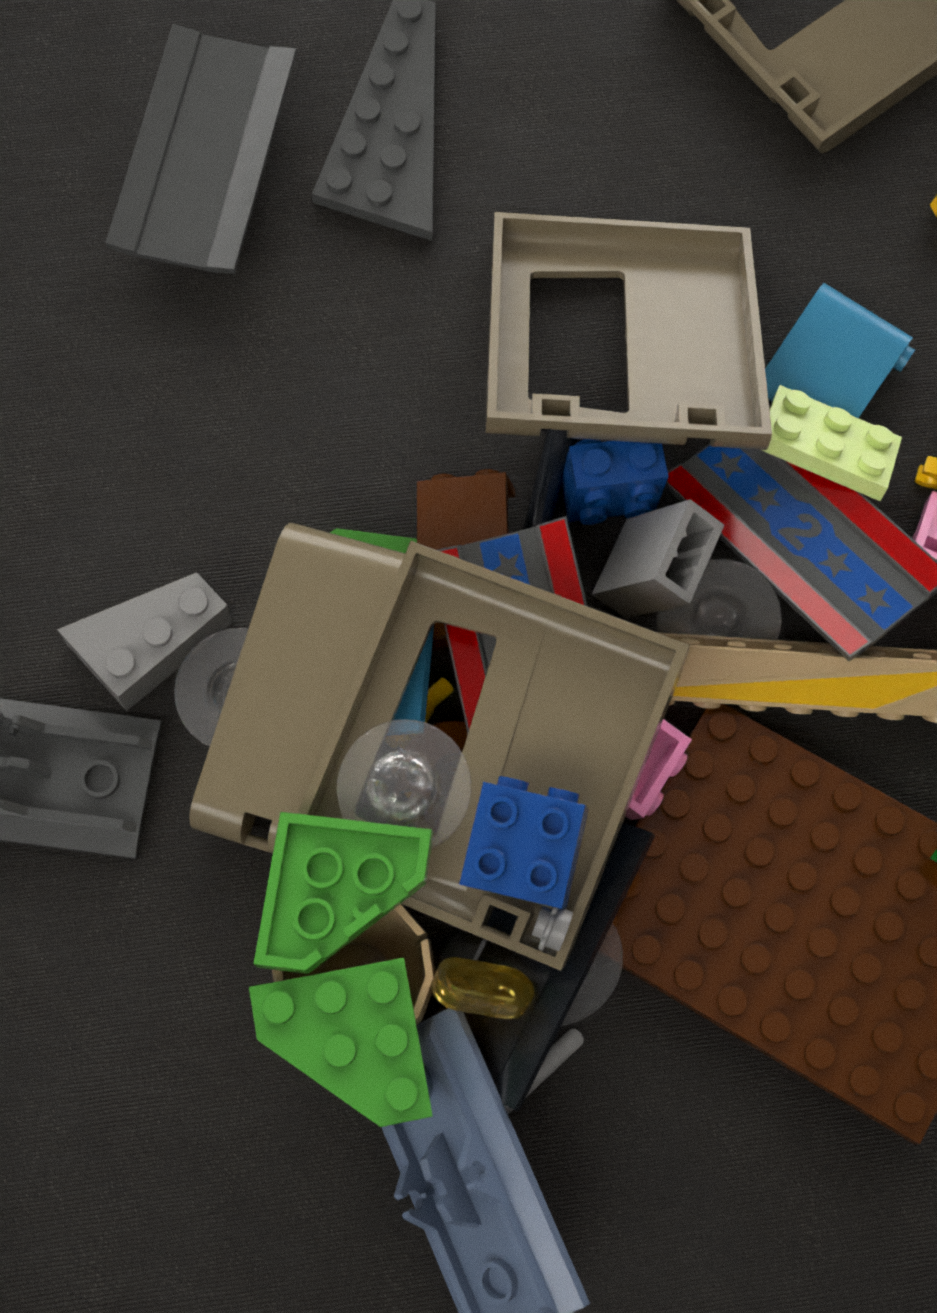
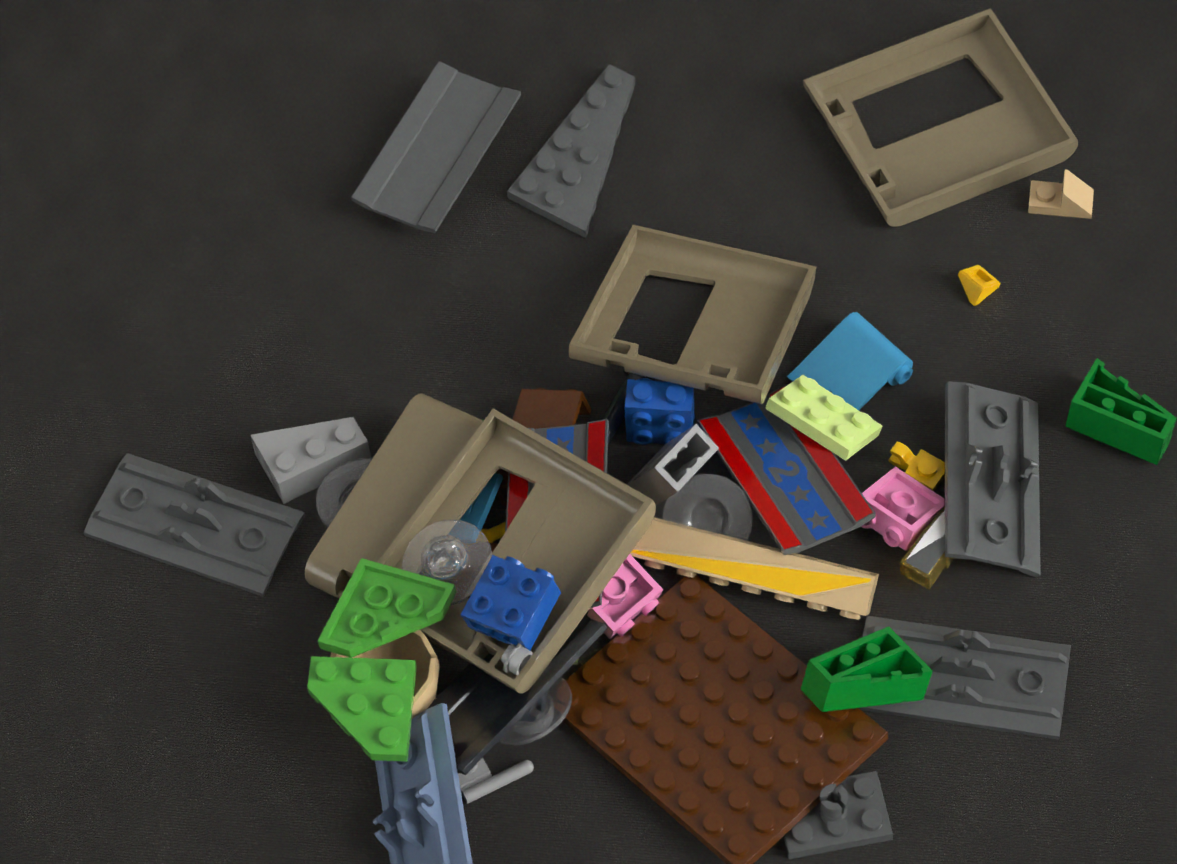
camera: 25 degrees right, 15 degrees down
(482, 988) = (464, 696): clear yellow plate -> none

